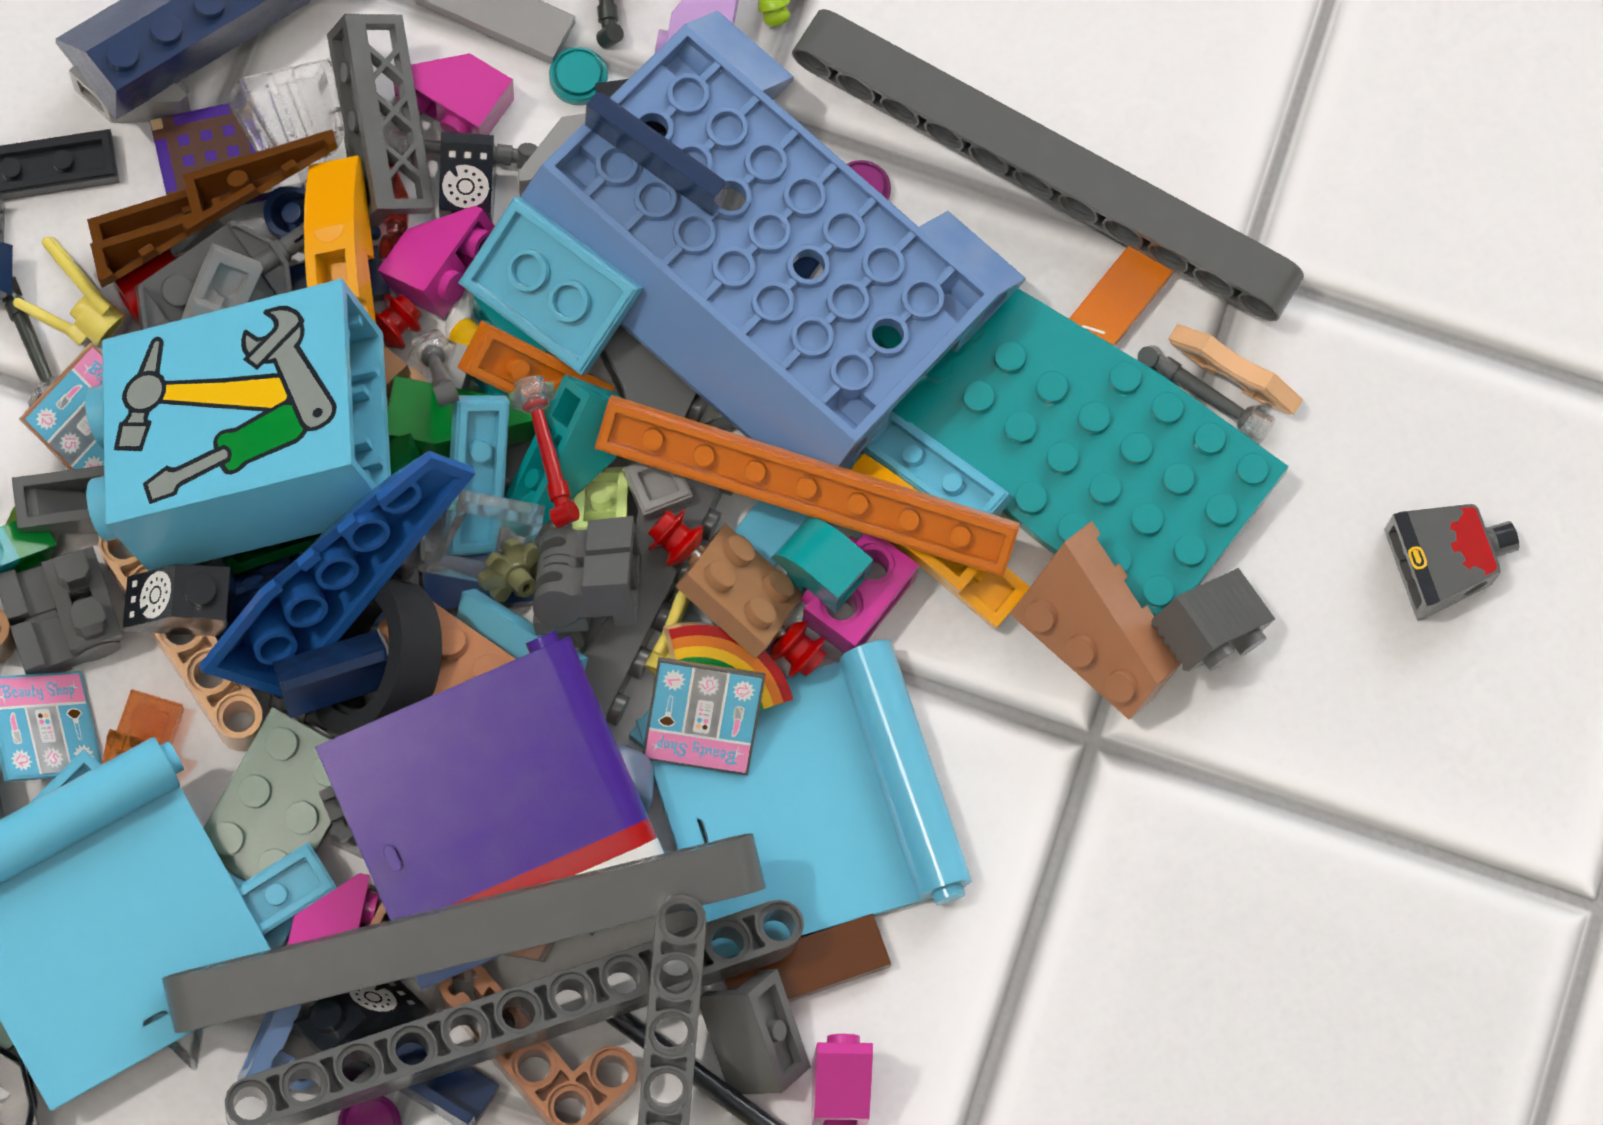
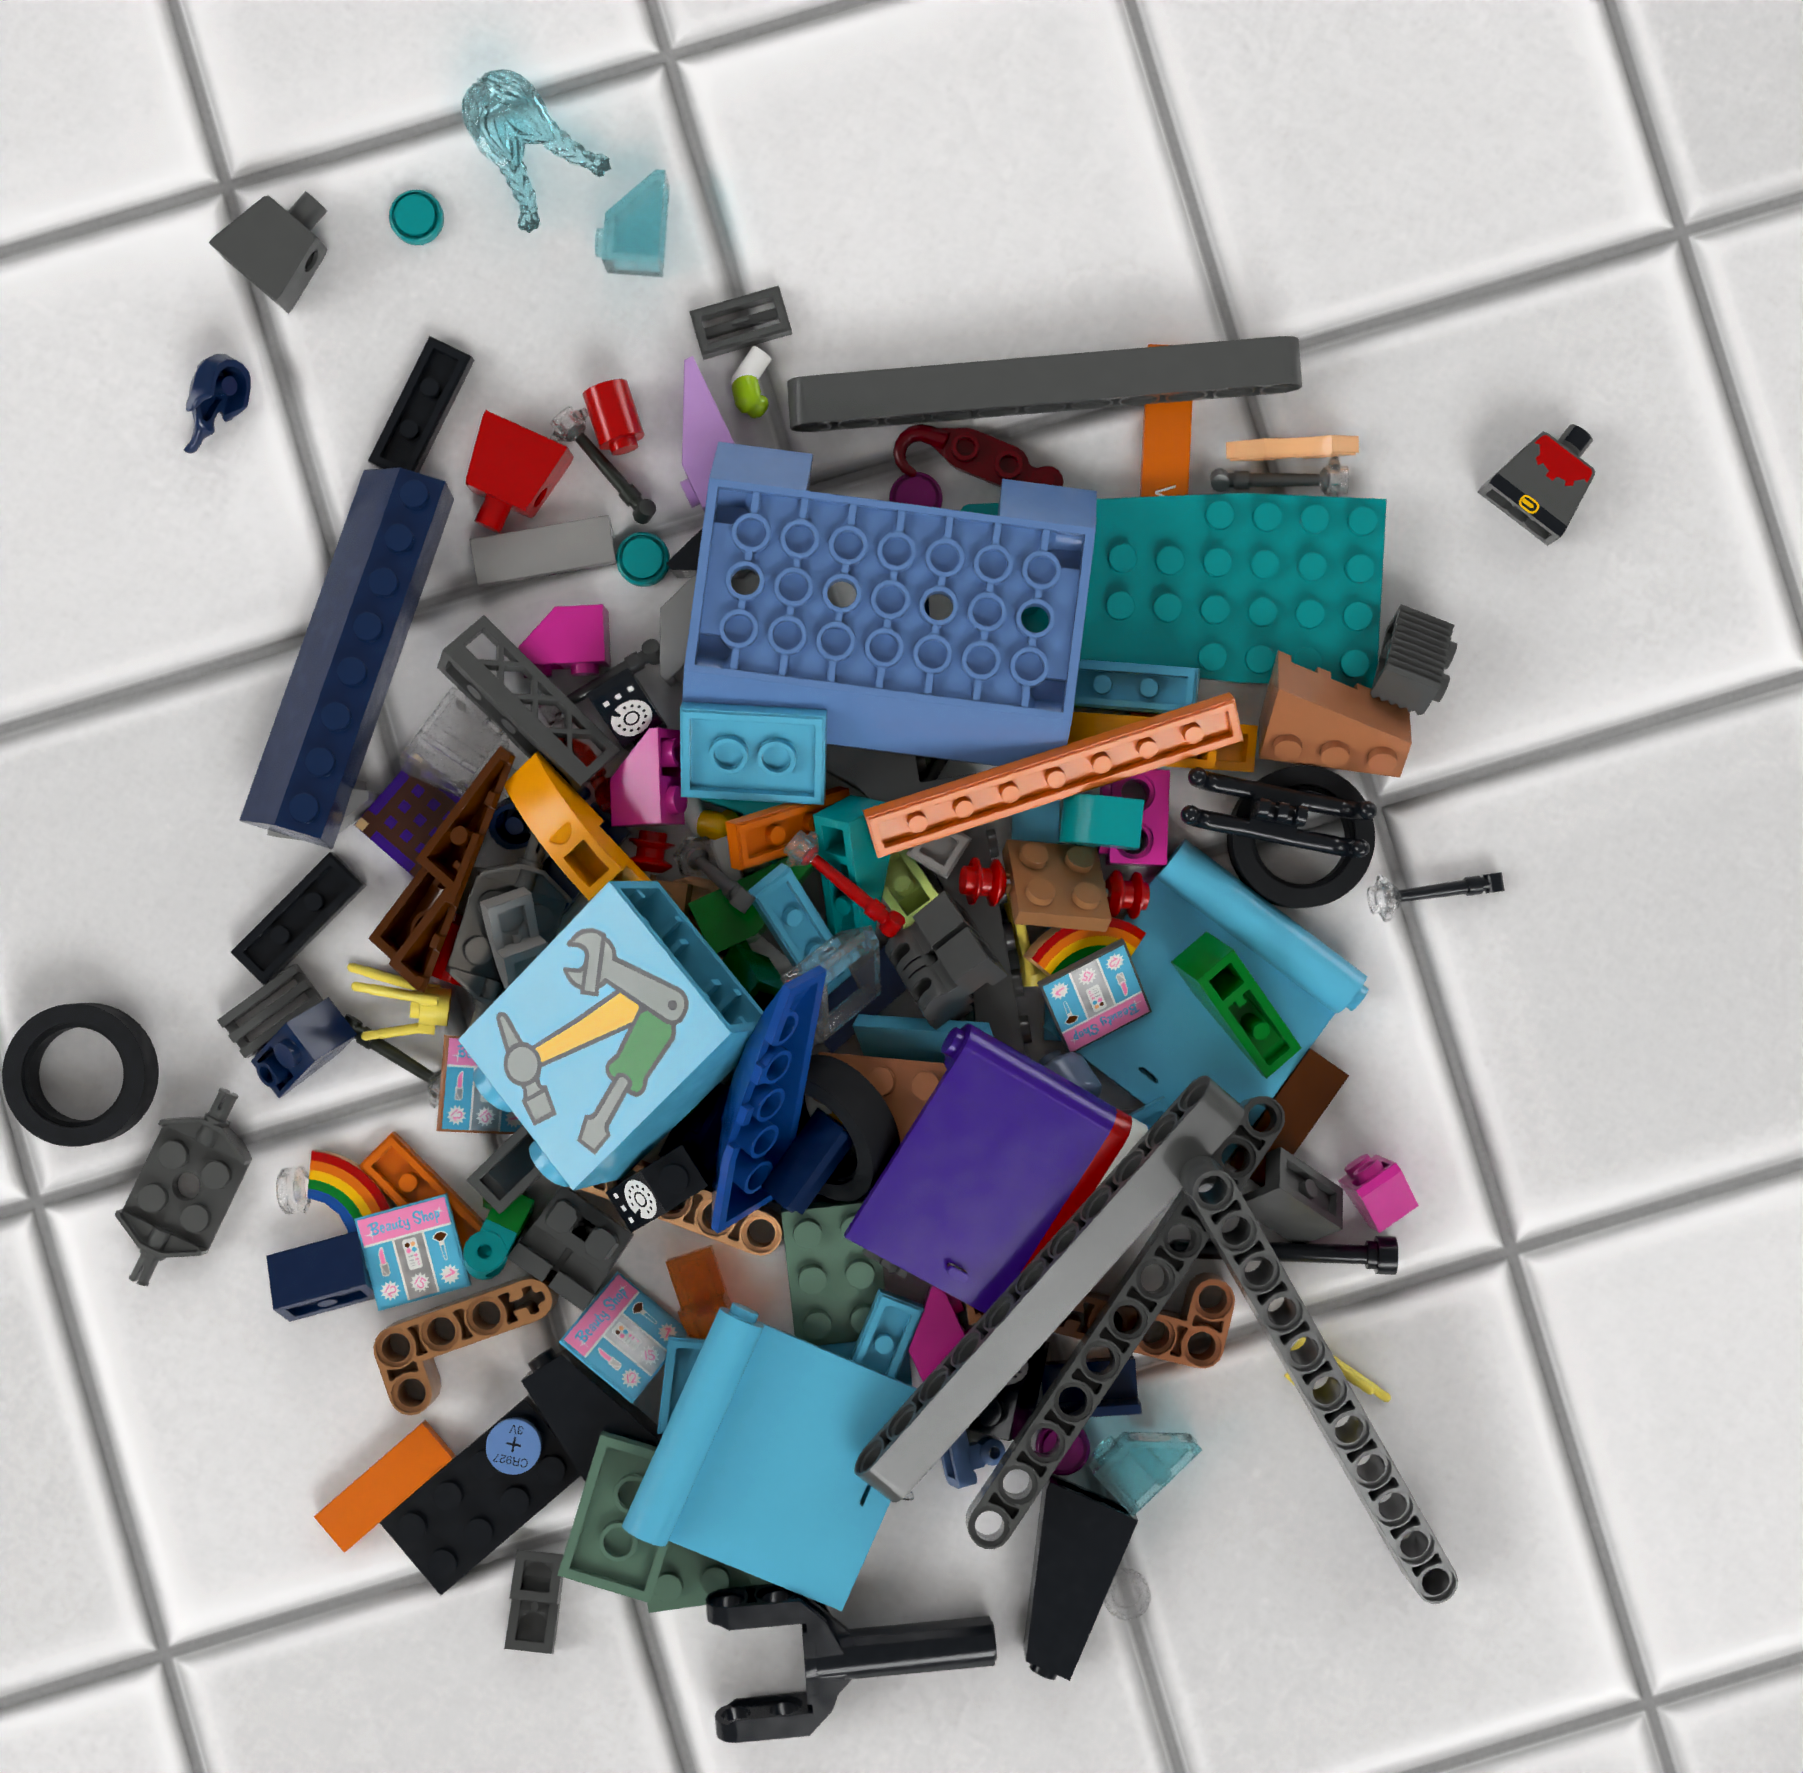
camera: 25 degrees left, 15 degrees up
(511, 571) = (880, 988): olive plant -> none
(655, 153) = (765, 603): dark blue tile -> none
(831, 819) = (1236, 1003): none -> green slope
(938, 180) = (974, 455): none -> dark red piece
(986, 665) = (1277, 814): none -> black piece
(1016, 654) = (1334, 885): none -> black tyre
(1042, 825) = (1385, 897): none -> piece

